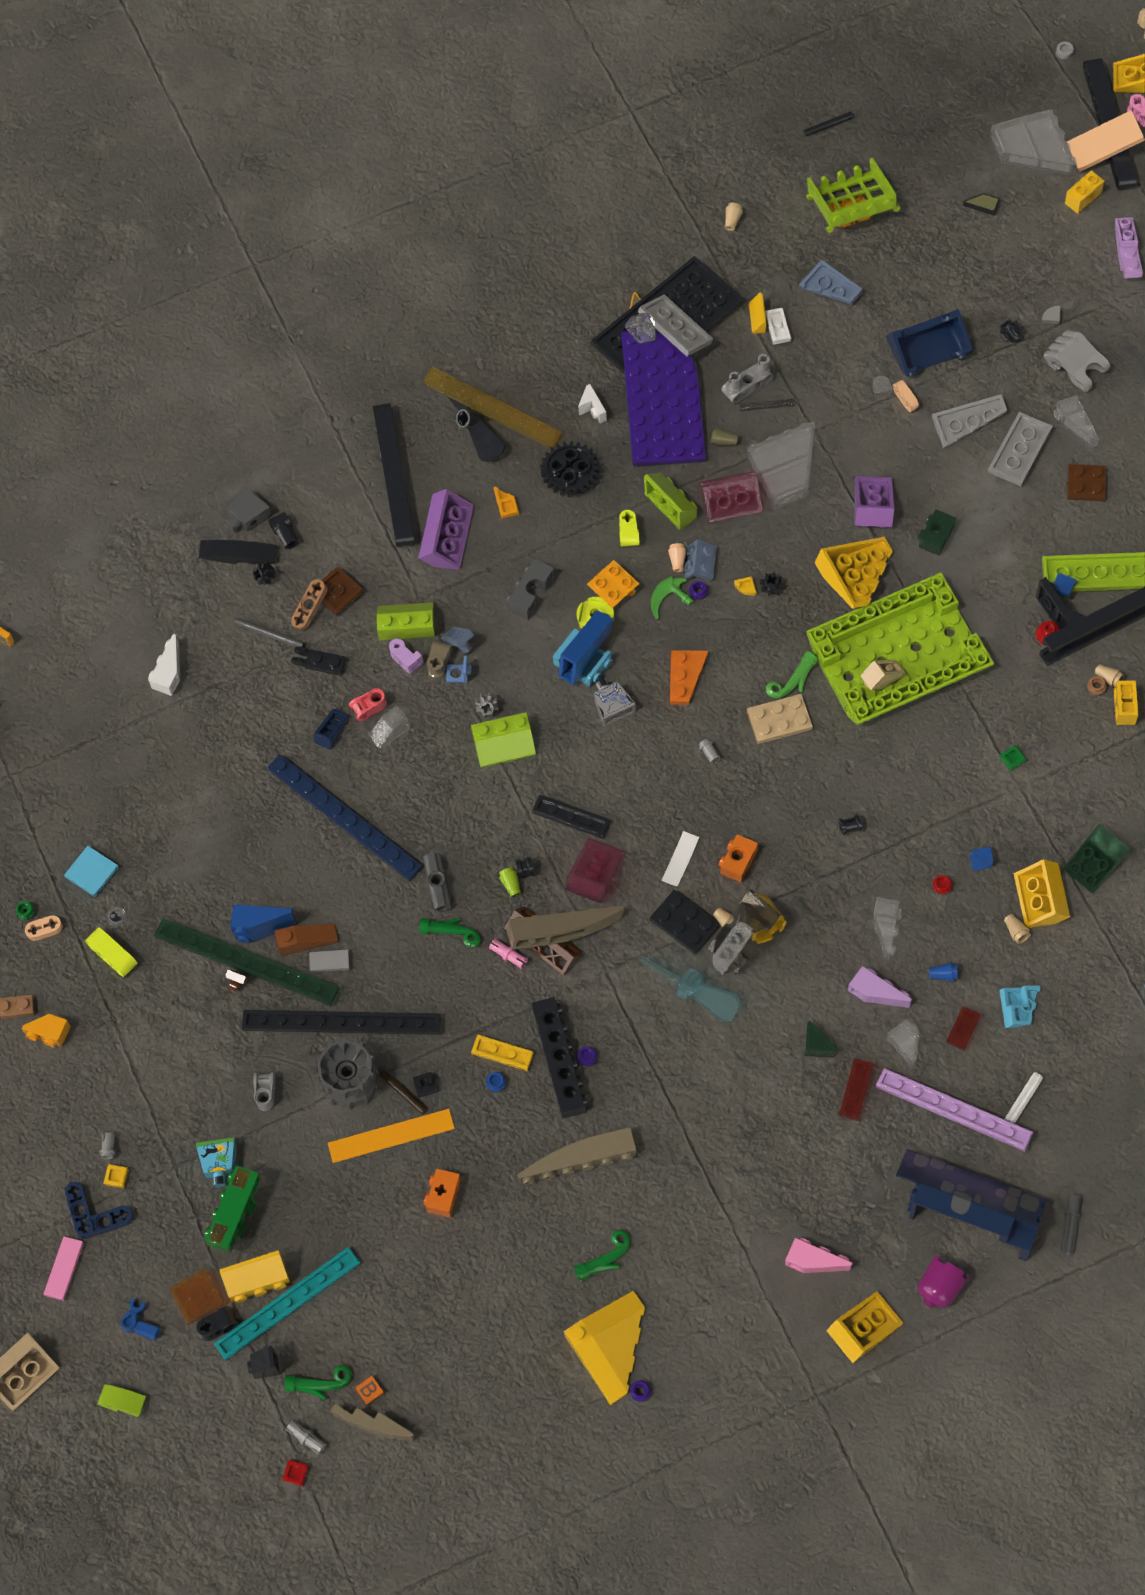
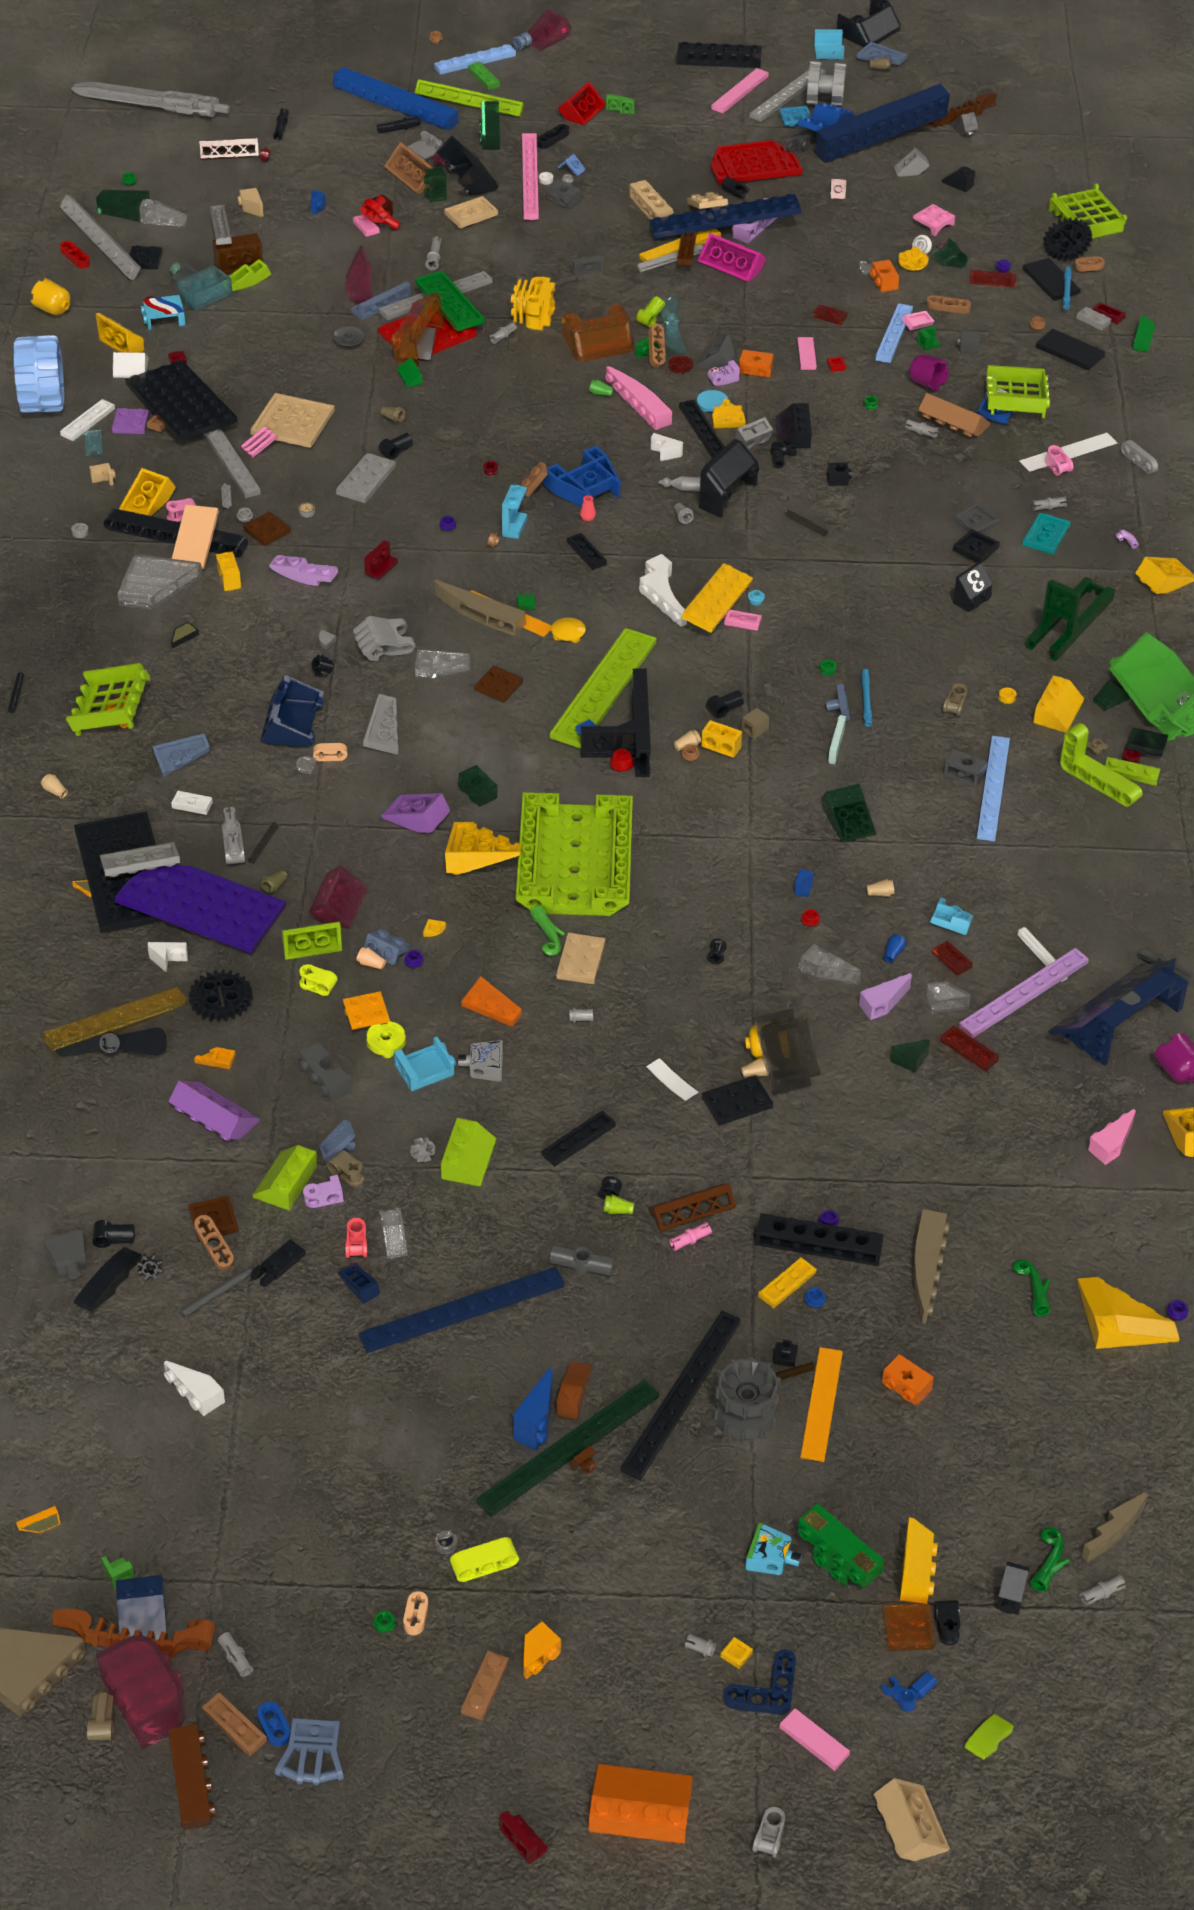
camera: 70 degrees left, 20 degrees down
(91, 871) = (378, 1545): medium azure tile -> none
(264, 1087) = (717, 1483): light grey piece -> none
(287, 1303) = (954, 1556): teal tile -> none
(295, 1473) = (1134, 1615): red tile -> none
(329, 961) = (609, 1380): light grey tile -> none
(369, 1390) = (1078, 1520): orange tile -> none
(393, 475) = (120, 1125): black beam -> none
(450, 927) = (631, 1274): green plant -> none
(465, 671) = (373, 1153): medium blue bracket -> none
(559, 927) = (693, 1181): dark tan slope -> none
(584, 647) = (421, 1051): blue slope -> none
(594, 870) = (648, 1140): clear pink slope -> none
(641, 327) = (130, 871): clear slope -> none
(666, 587) = (394, 985): bright green piece -> none
(715, 1000) = (831, 1105): clear light blue piece -> none
(738, 868) = (701, 1036): orange brick -> none
(757, 314) = (169, 809): yellow slope -> none
(771, 584) = (447, 907): black gear -> none
(784, 464) = (334, 845): clear slope -> none
(882, 673) = (593, 868): tan slope -> none
(1012, 758) = (721, 829): green tile -> none
(1020, 449) = (437, 707): light grey plate -> none
(1041, 894) = (860, 860): yellow slope -> none

